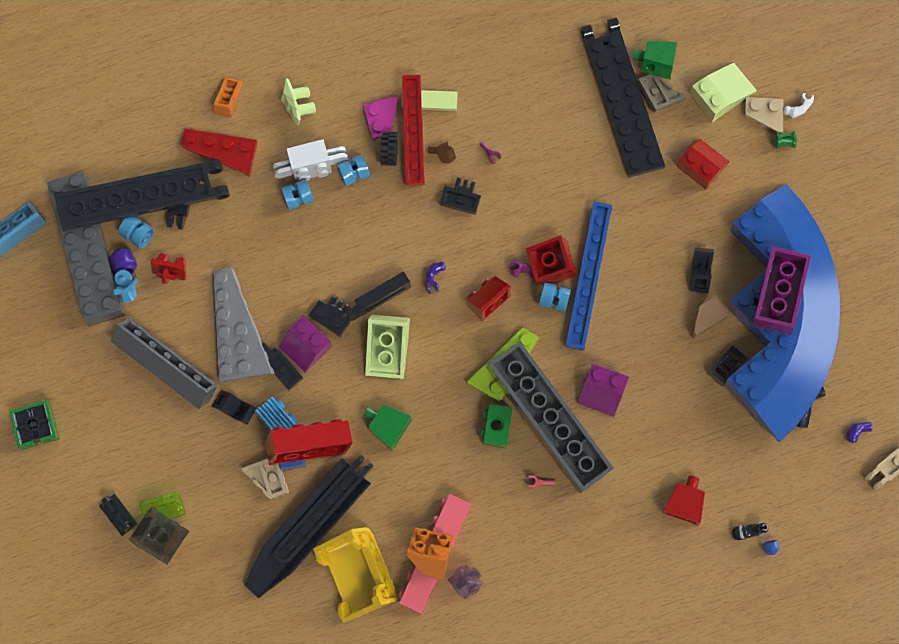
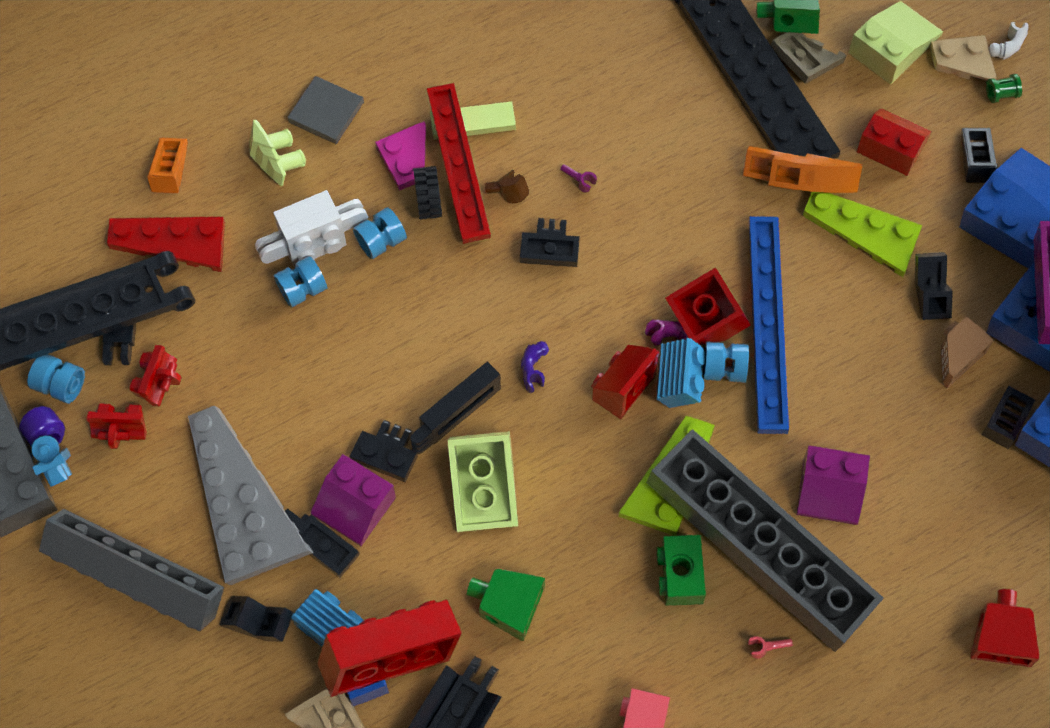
camera: 15 degrees left, 10 degrees down
(199, 241) = (158, 375): none -> red hips
(335, 75) = (325, 110): none -> dark grey tile
(524, 300) = (680, 373): none -> dark azure brick
(634, 178) = (803, 173): none -> orange slope
(672, 224) = (874, 231): none -> lime wing
(754, 195) = (978, 170): none -> black slope

